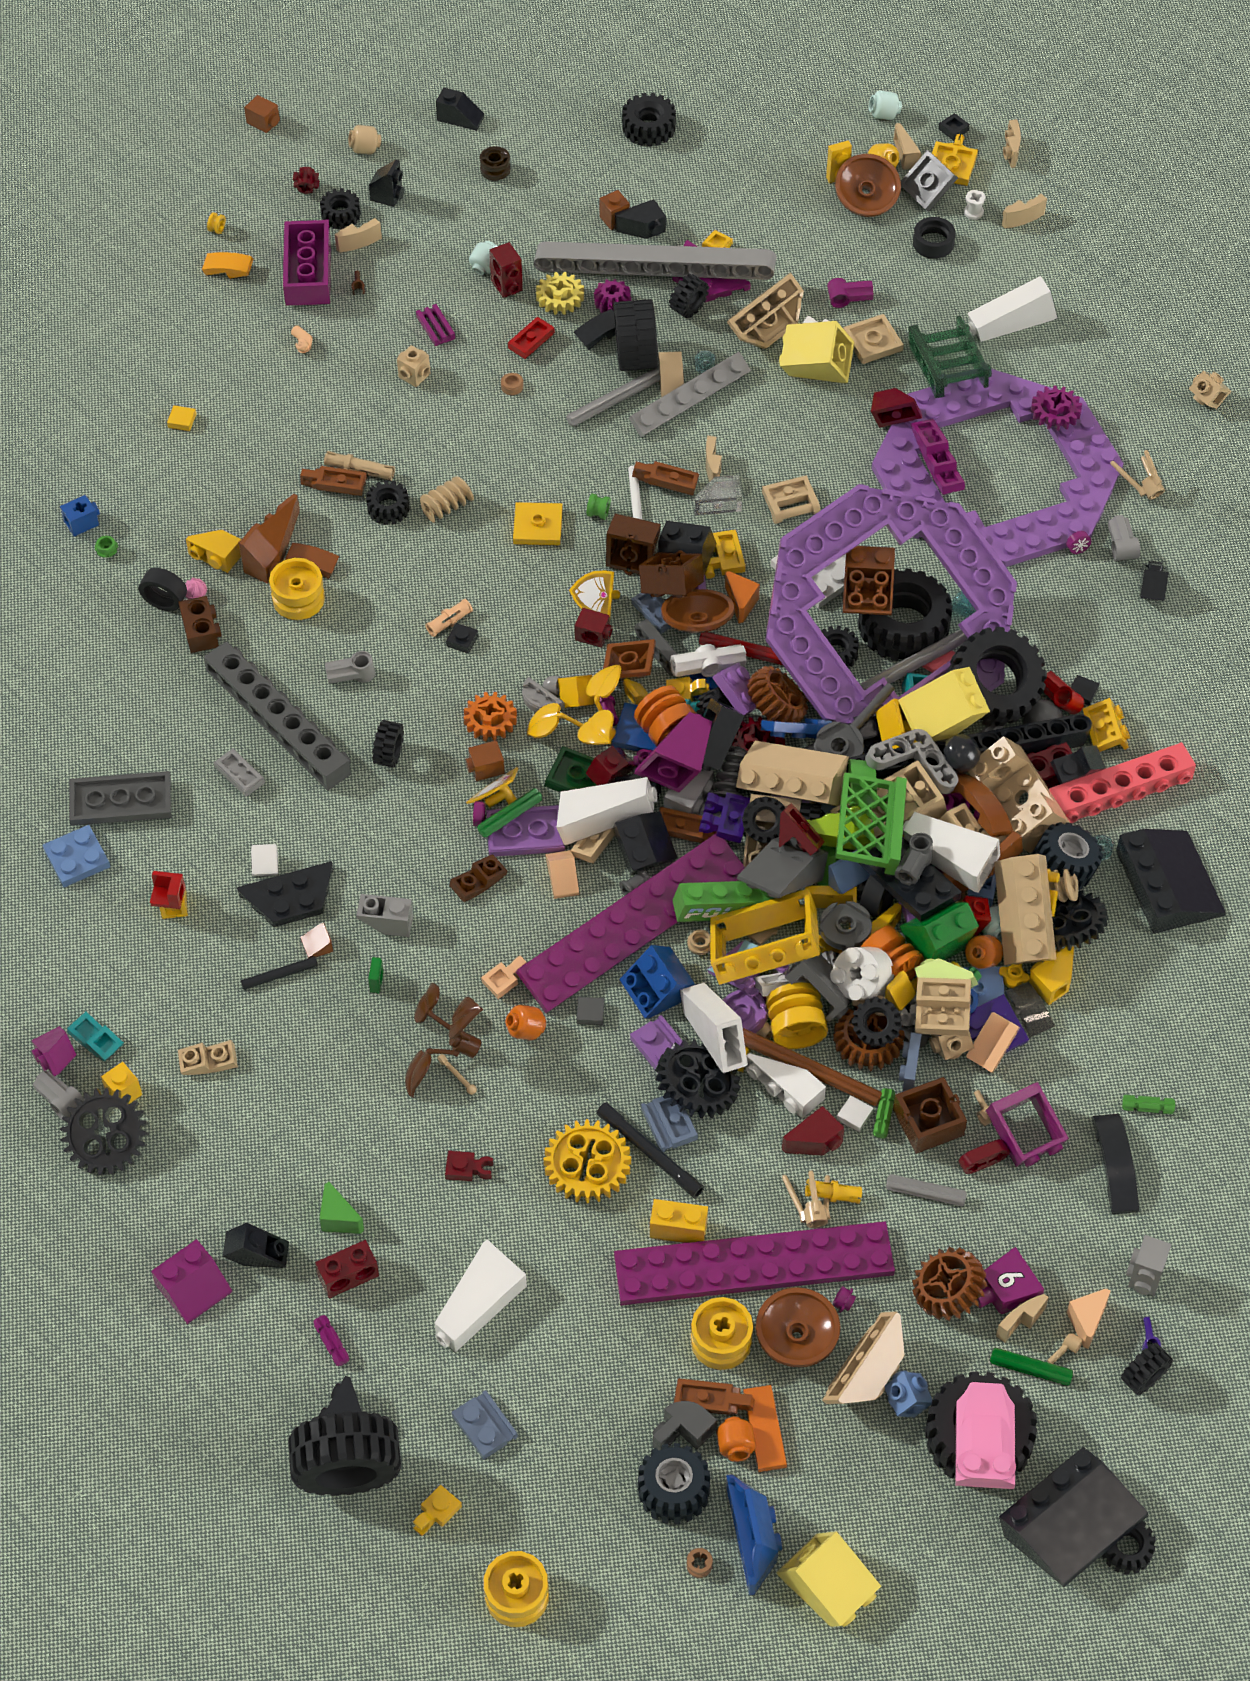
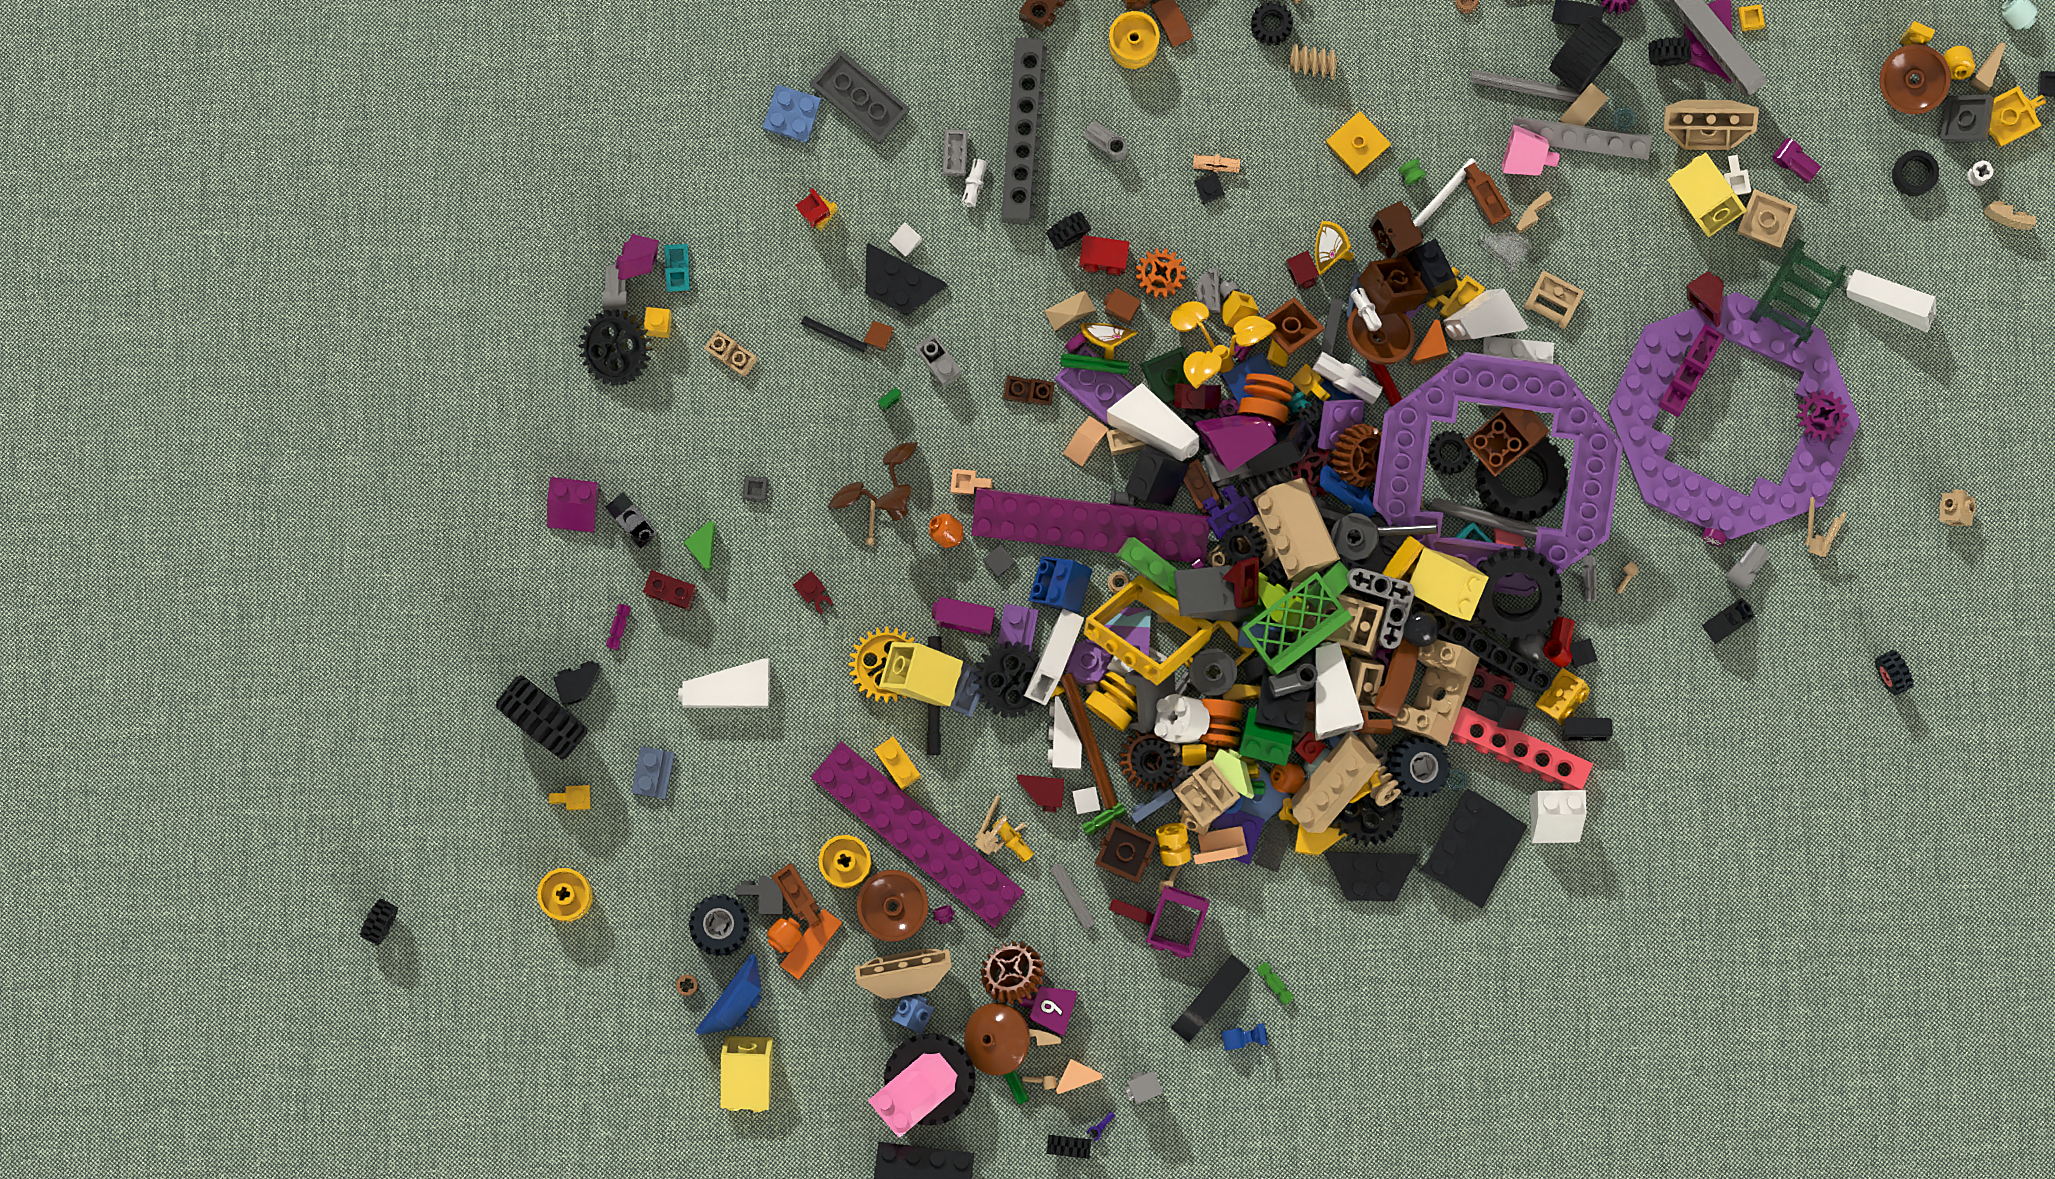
camera: 45 degrees right, 25 degrees up
(277, 779) = (974, 183): none -> white pin
(335, 1136) = (755, 489): none -> dark grey tile
(432, 740) = (1103, 255): none -> red brick
(448, 801) = (1069, 310): none -> tan slope
(610, 1065) = (963, 616): none -> magenta window
(623, 1131) = (921, 673): none -> light yellow slope
(664, 427) = (1527, 153): none -> bright pink torso
(670, 600) = (1366, 309): none -> white axle
(760, 537) = (1485, 316): none -> white slope
(962, 1076) = (1174, 844): none -> yellow wheel
(1014, 1338) = (1008, 1039): none -> dark orange dish
(1044, 648) = (1589, 578): none -> light grey axle
(1050, 610) = (1631, 570): none -> tan hand
(1122, 965) = (1371, 874): none -> black wing
(1149, 730) = (1587, 729): none -> black slope
(1171, 1167) = (1238, 1038): none -> blue leg
(1200, 795) = (1557, 816): none -> white slope

